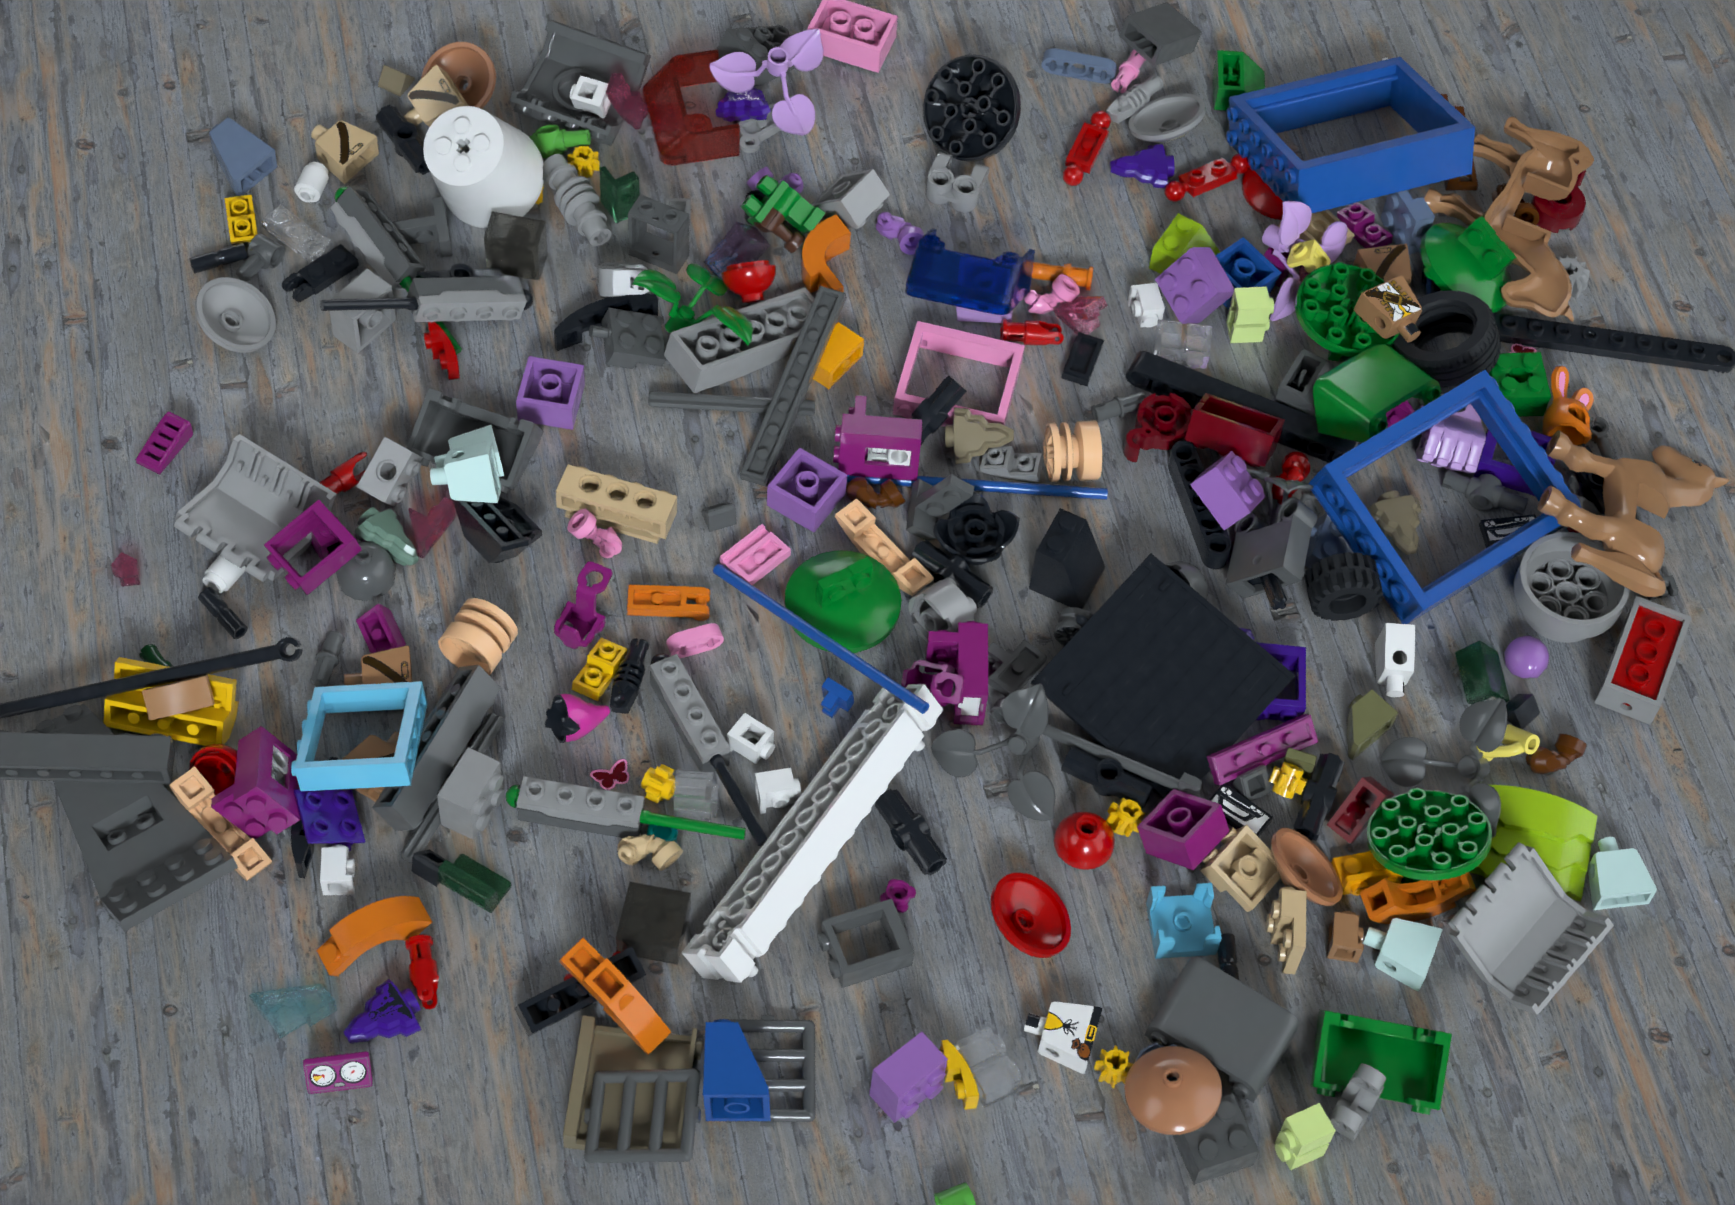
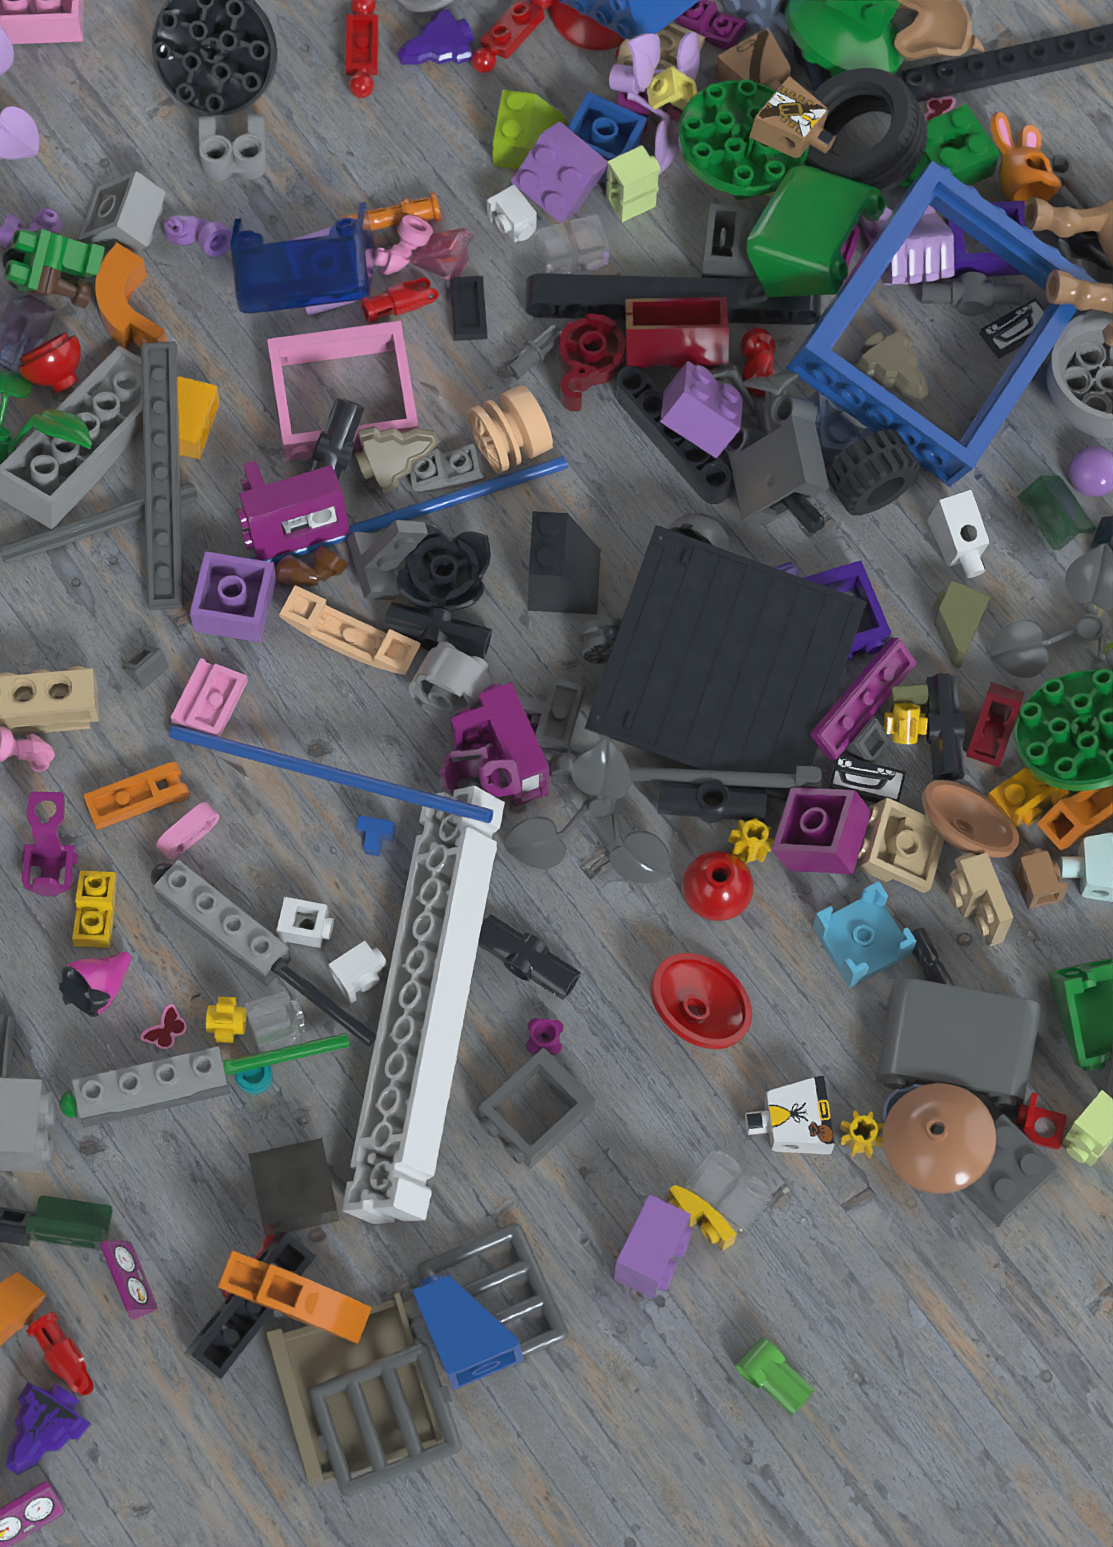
camera: 20 degrees left, 10 degrees up
(499, 937) = (129, 1278): none -> slope
(629, 677) = (133, 906): black hinge -> none
(634, 849) = (233, 1107): tan arm -> none
(845, 598) = (332, 710): green bracket -> none
(1256, 1110) = (1029, 1114): none -> red bracket

